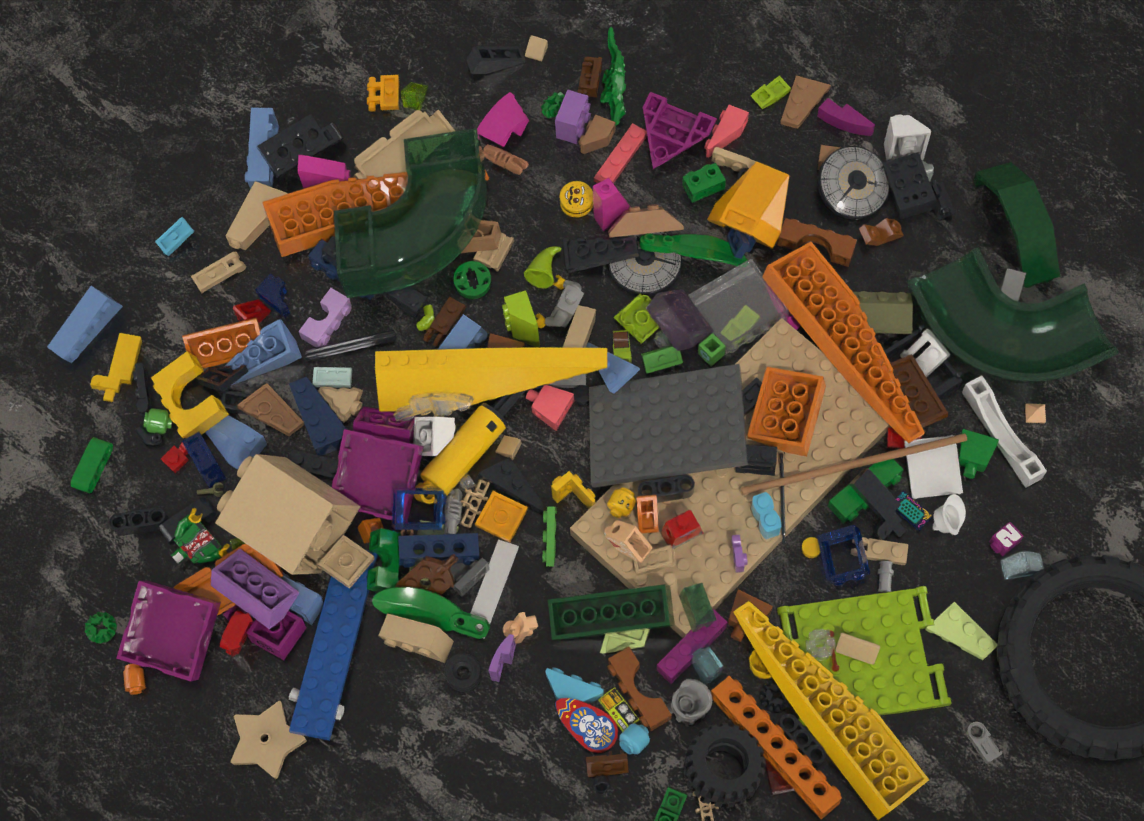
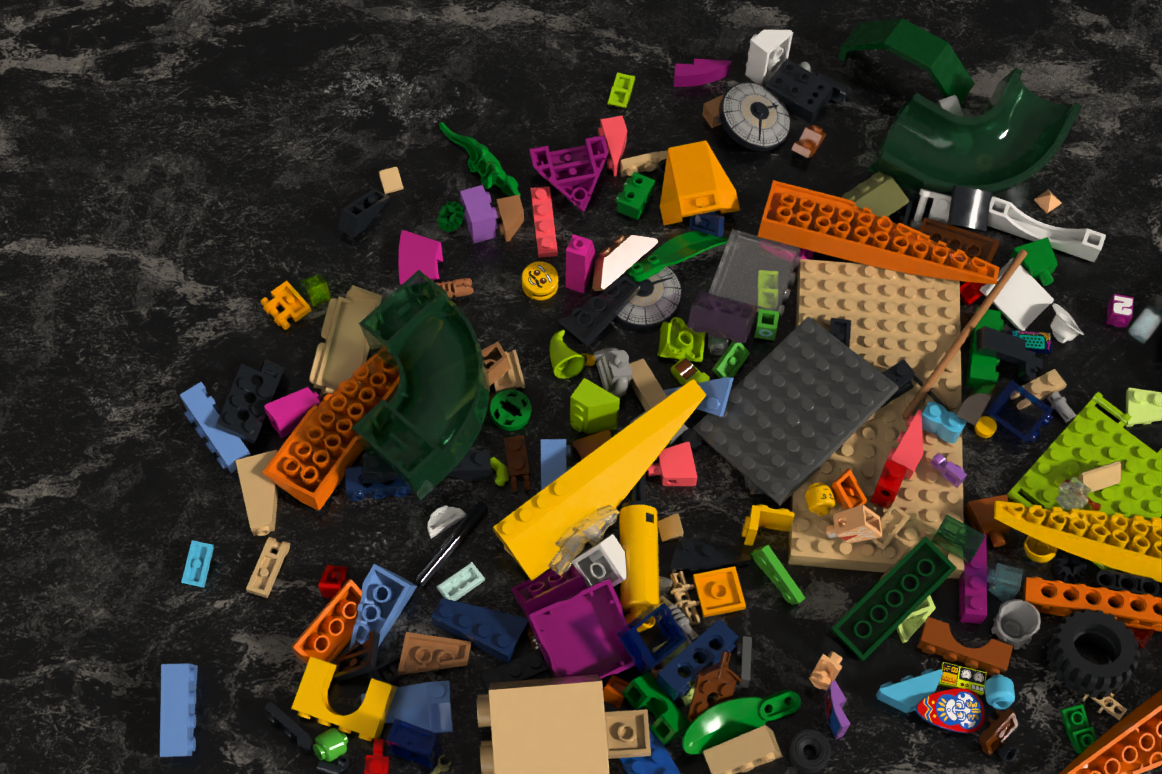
camera: 45 degrees left, 5 degrees down
(122, 366) = (249, 721): yellow piece -> none
(272, 293) = (340, 551): clear blue arch -> none
(318, 332) = (411, 553): lavender arch -> none
(342, 401) = (489, 595): tan rock -> none
(360, 324) = (443, 519): none -> white tile
(494, 581) = (762, 655): white sticker -> none
(590, 76) = (459, 172): reddish brown hinge -> none
(673, 483) = (848, 453): black beam -> none
(720, 518) = (910, 445): none -> coral slope
(787, 410) = (881, 325): orange slope -> none
(796, 234) = (790, 172): dark orange arch -> none
(802, 99) = (651, 80): medium nougat wing -> none
(806, 522) = (976, 403): none -> dark brown brick
(950, 371) = (969, 208): none -> black slope

